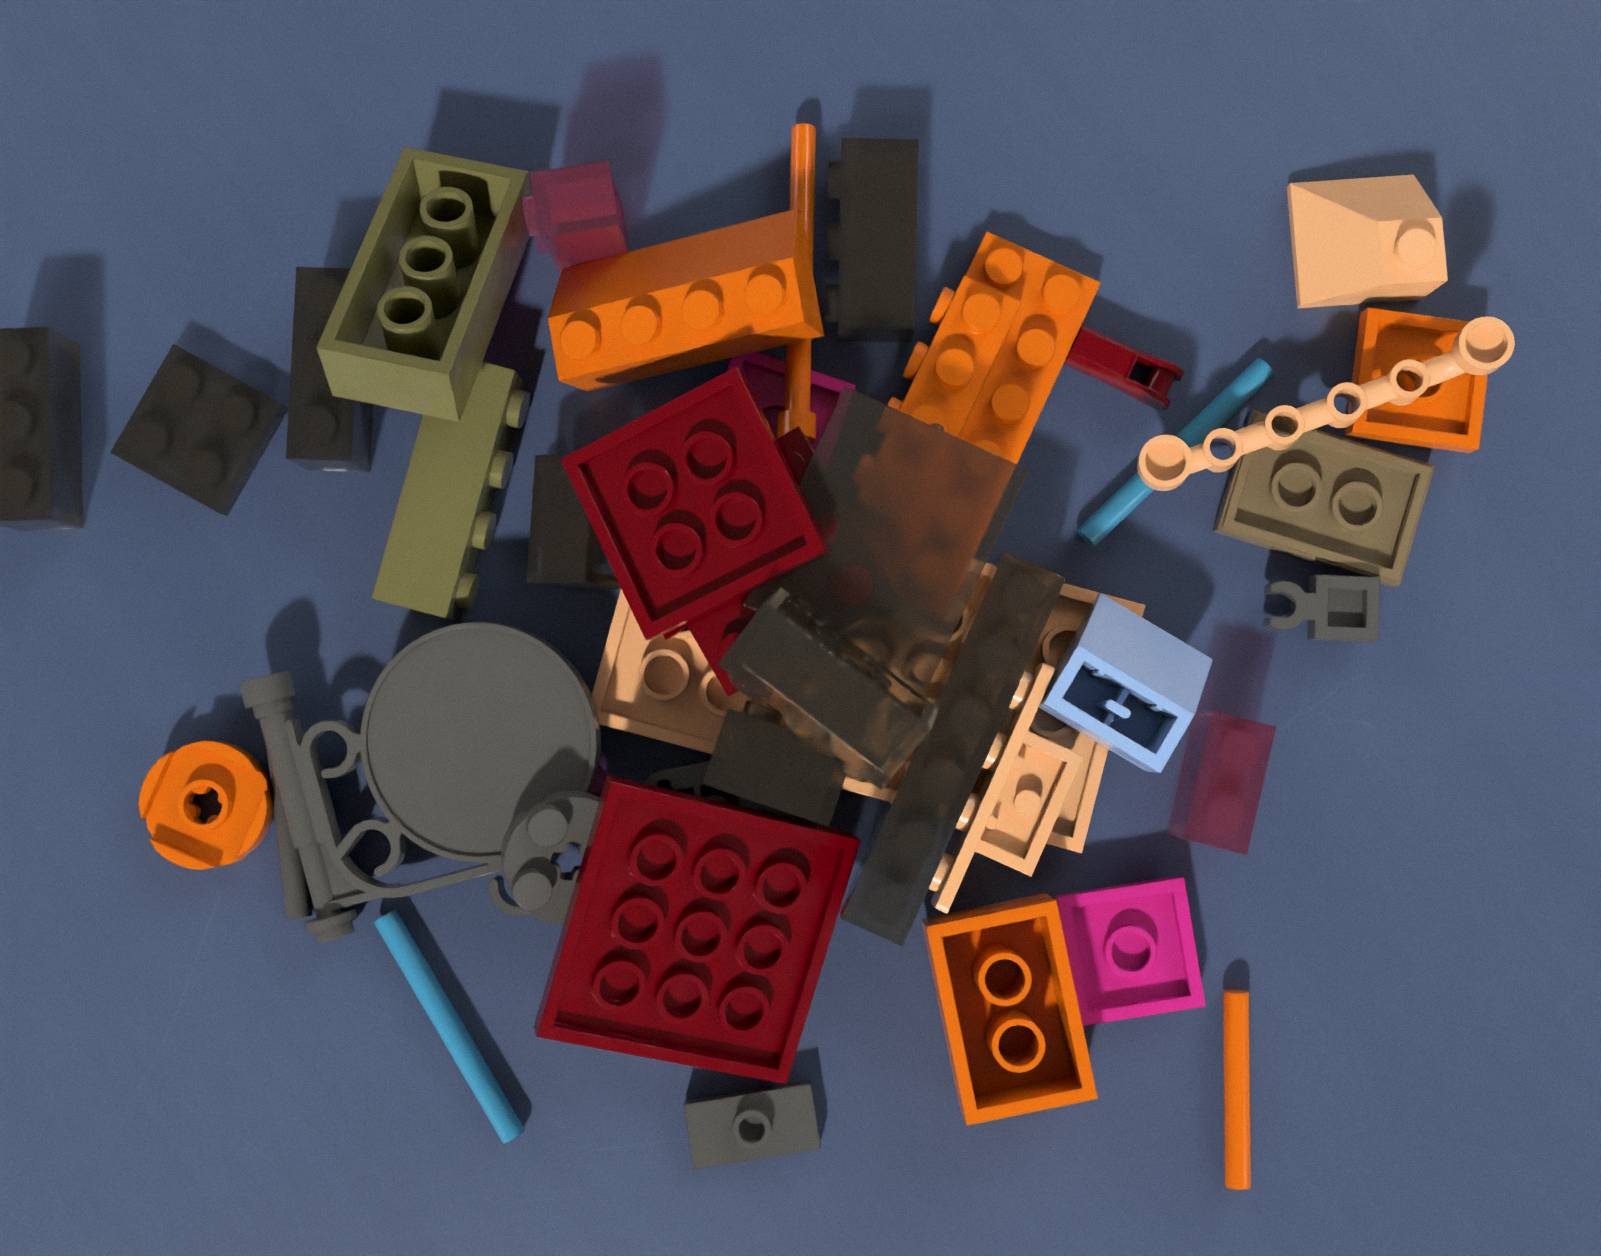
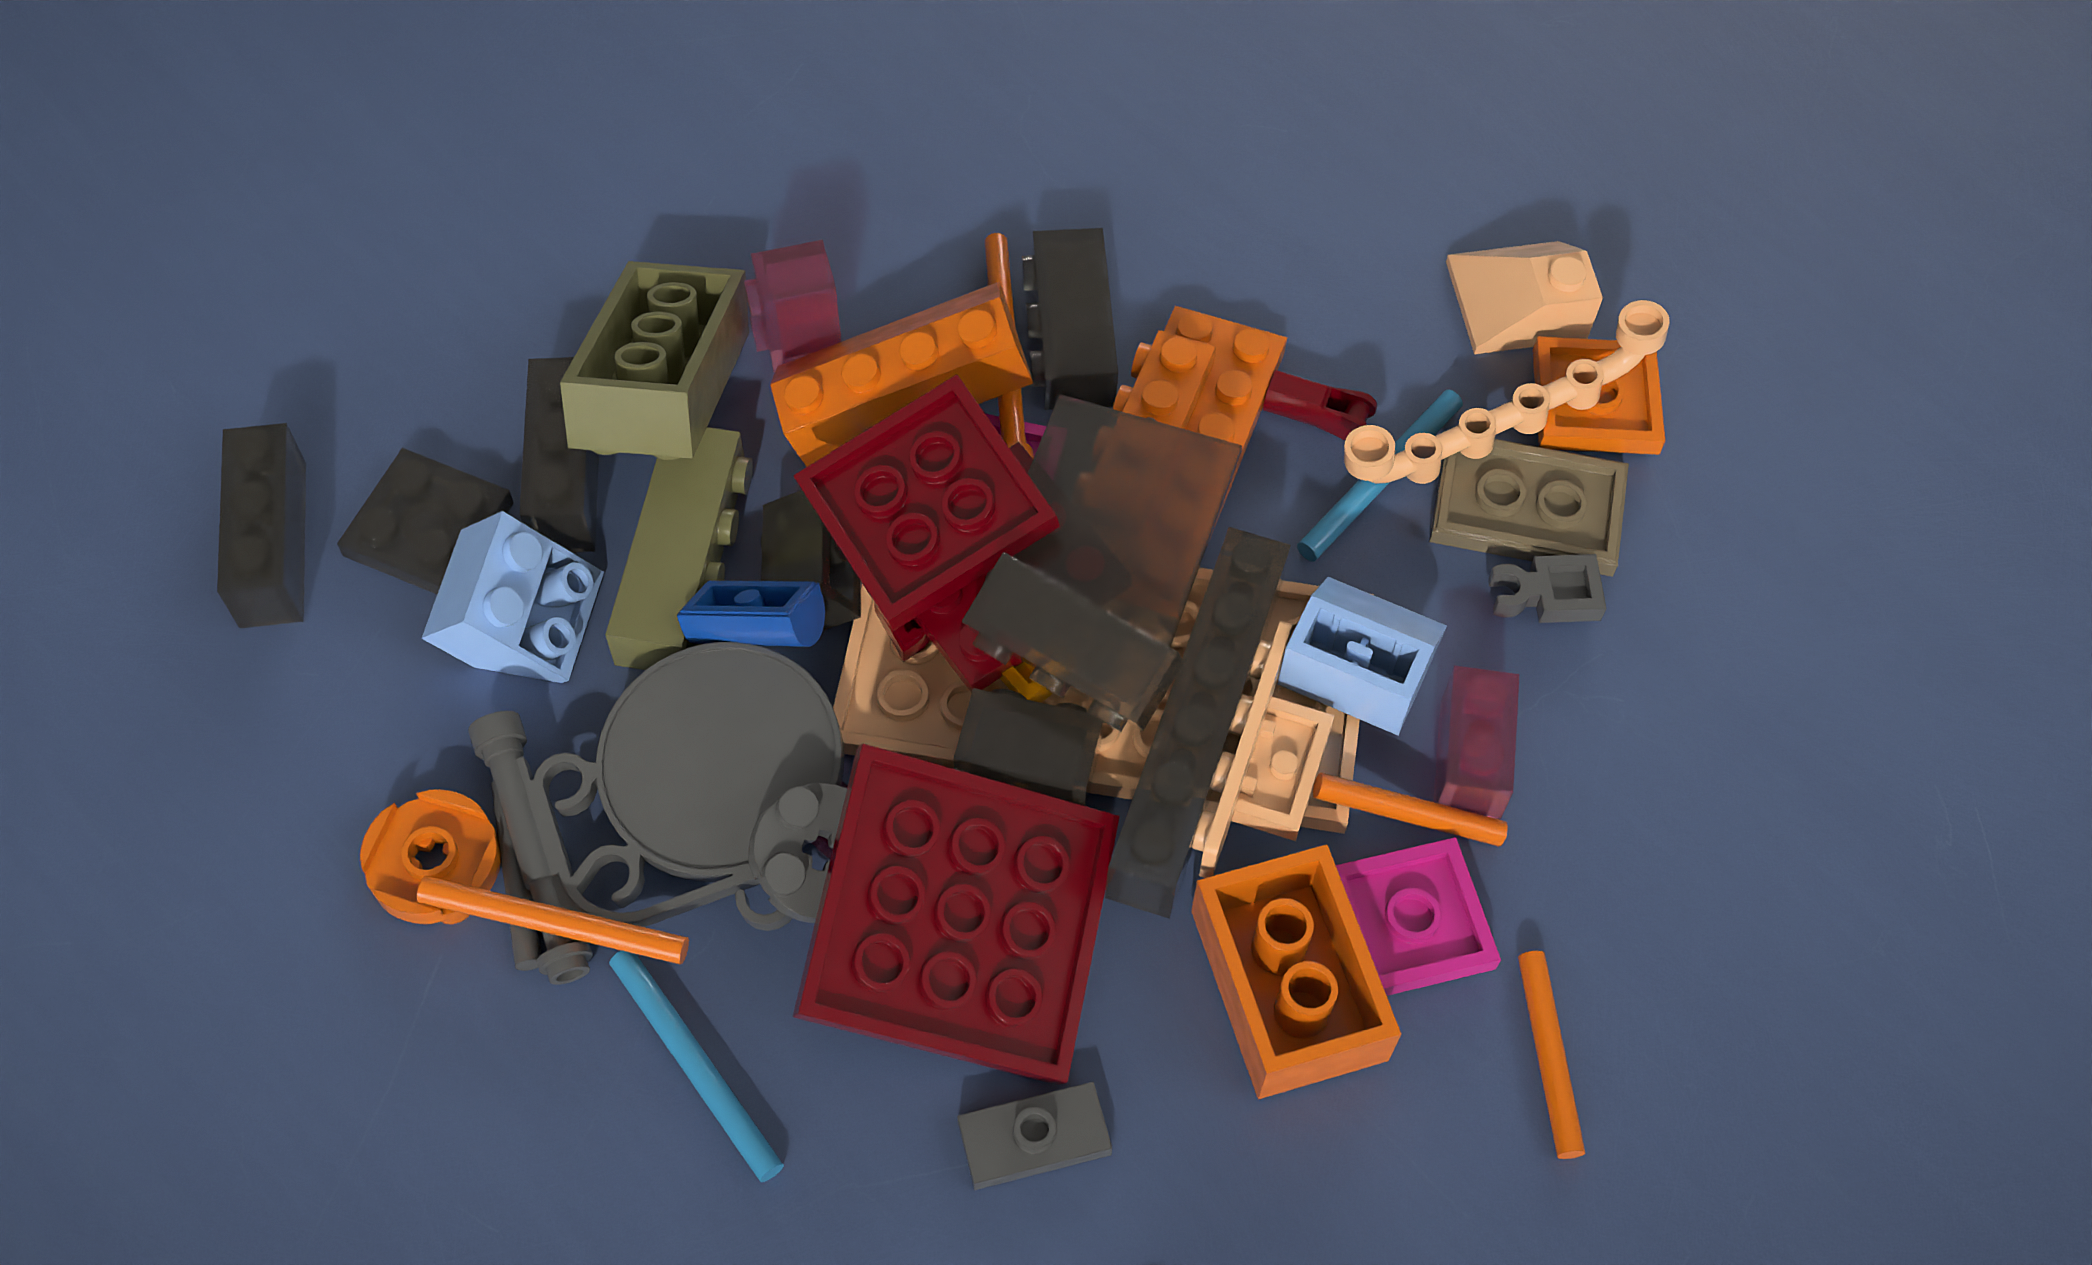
camera: 10 degrees left, 25 degrees down
(285, 537) = (513, 601): none -> light blue slope
(317, 893) = (553, 920): none -> orange bar
(518, 595) = (755, 613): none -> blue brick
(1145, 843) = (1409, 809): none -> orange bar

